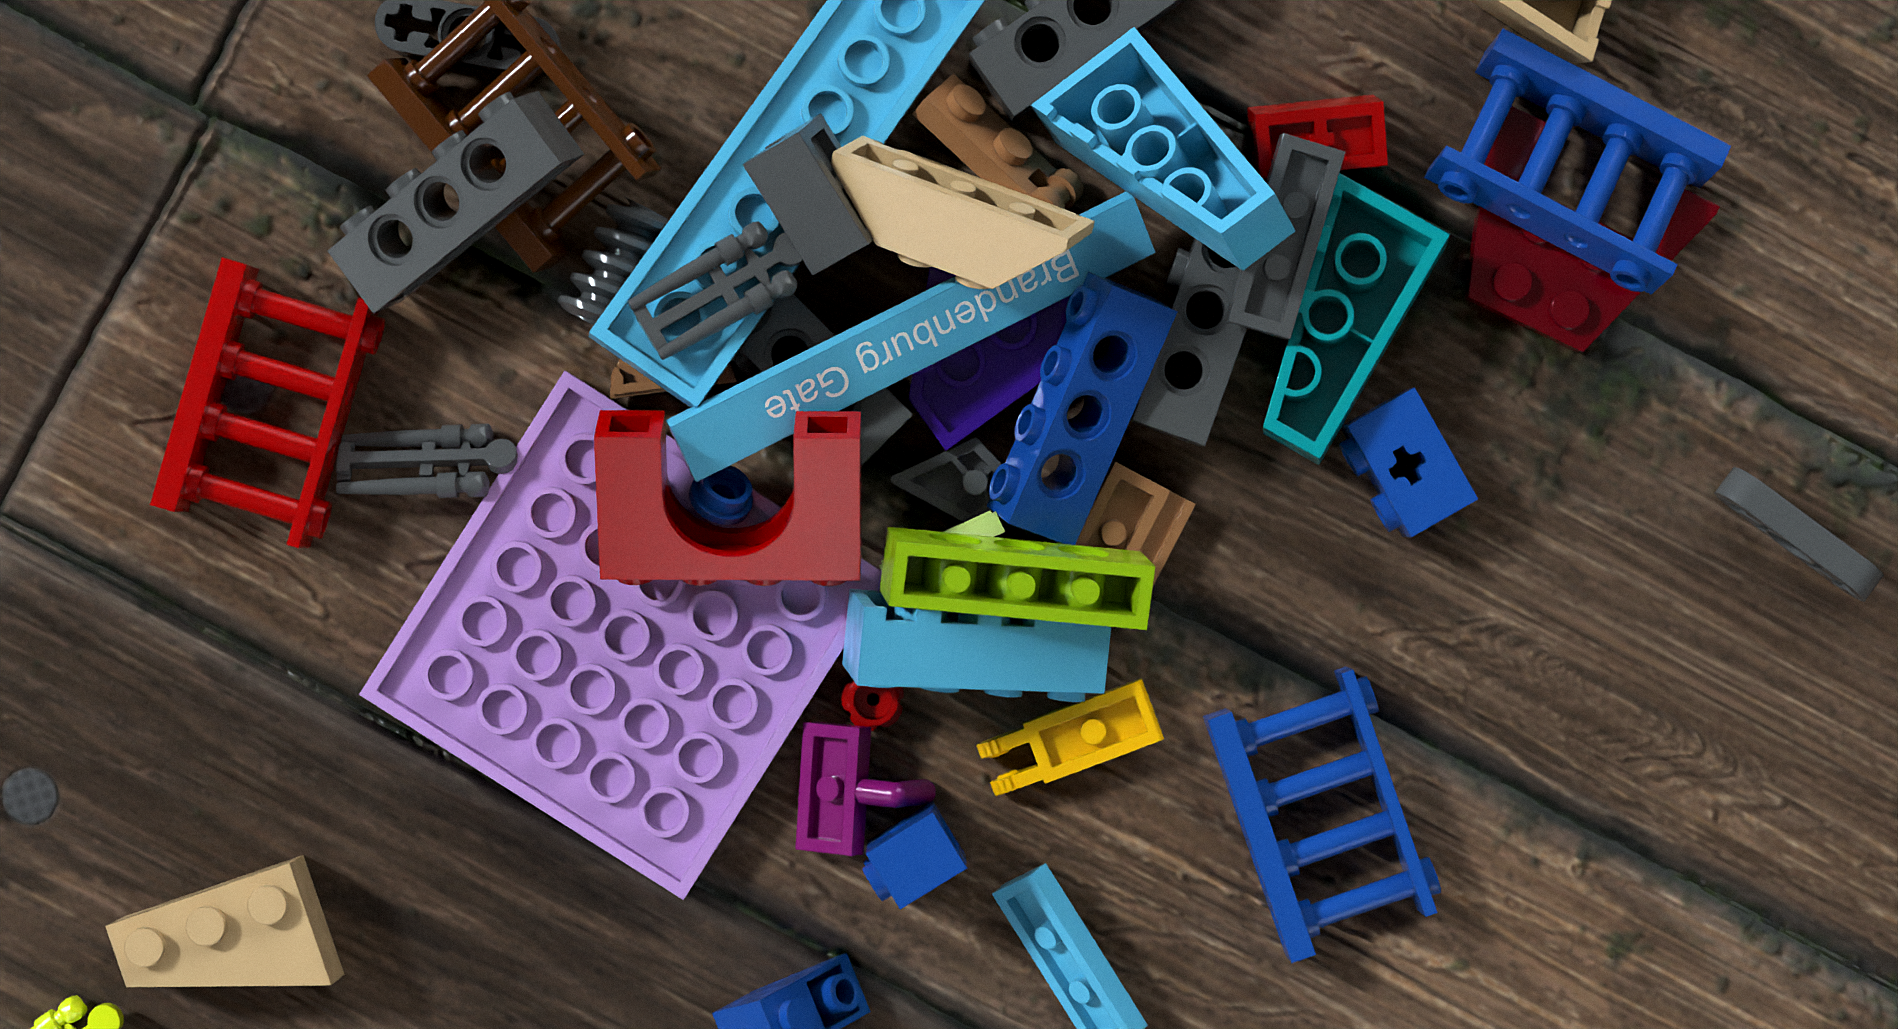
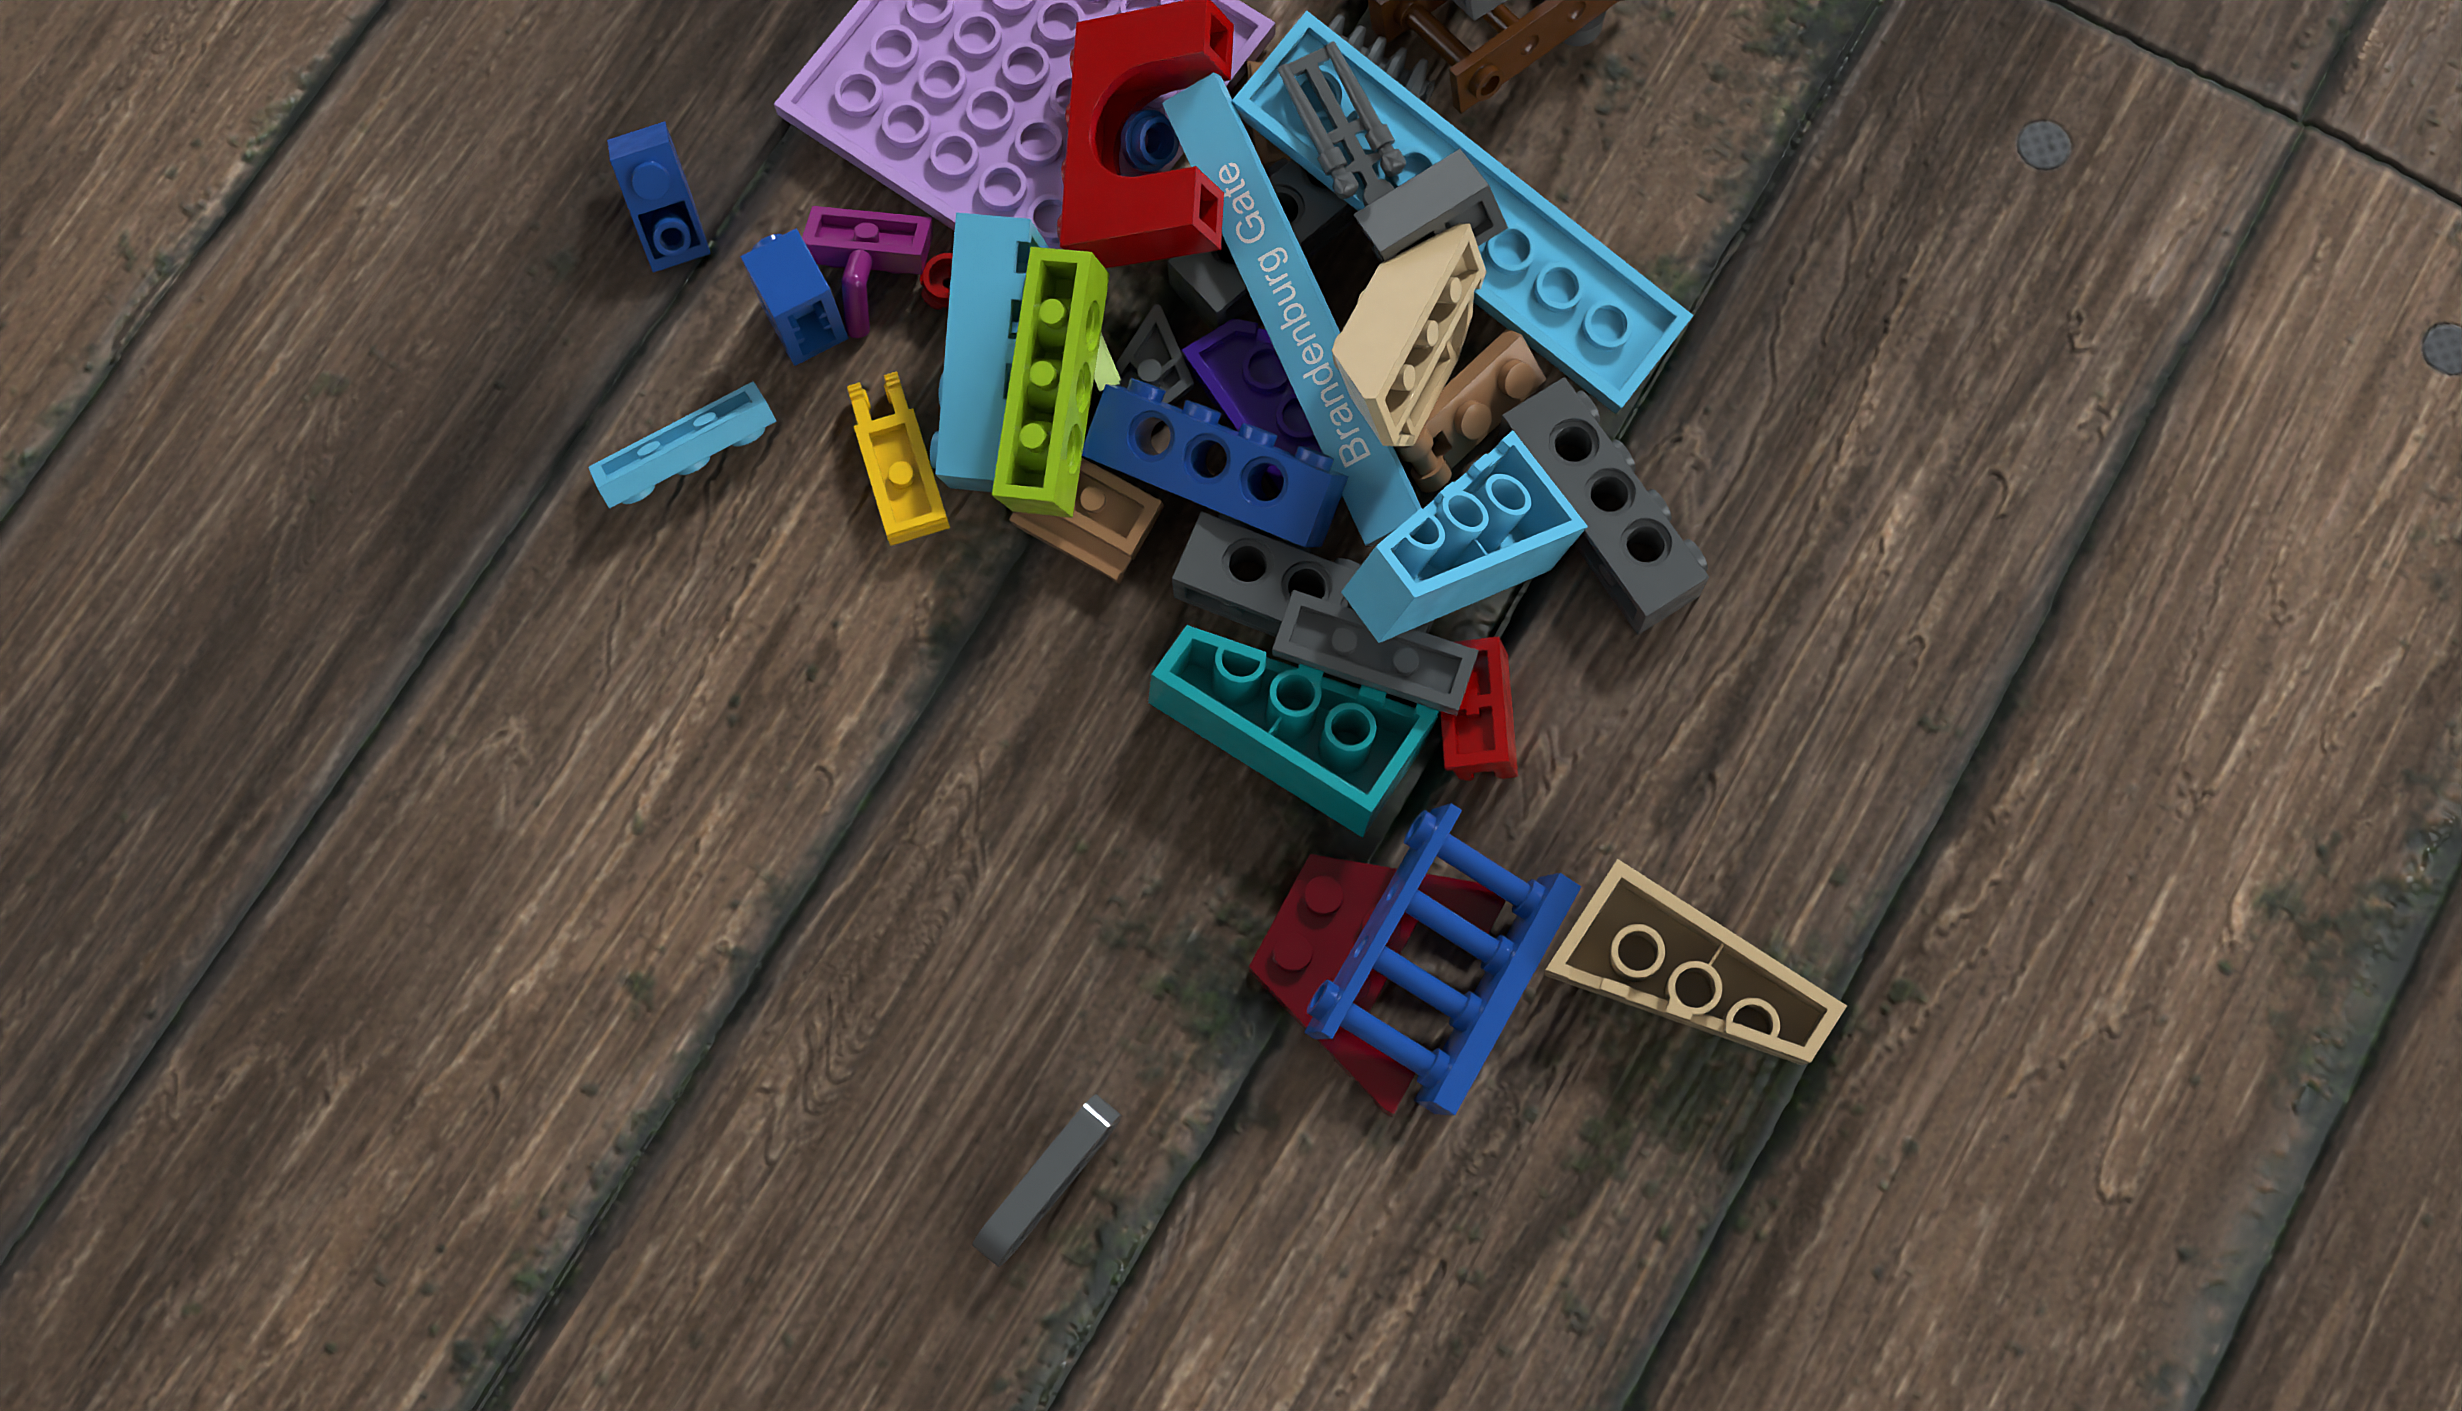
camera: 95 degrees right, 15 degrees down
(1280, 860) = (757, 641): blue fence -> none
(1437, 482) = (1122, 809): blue brick -> none

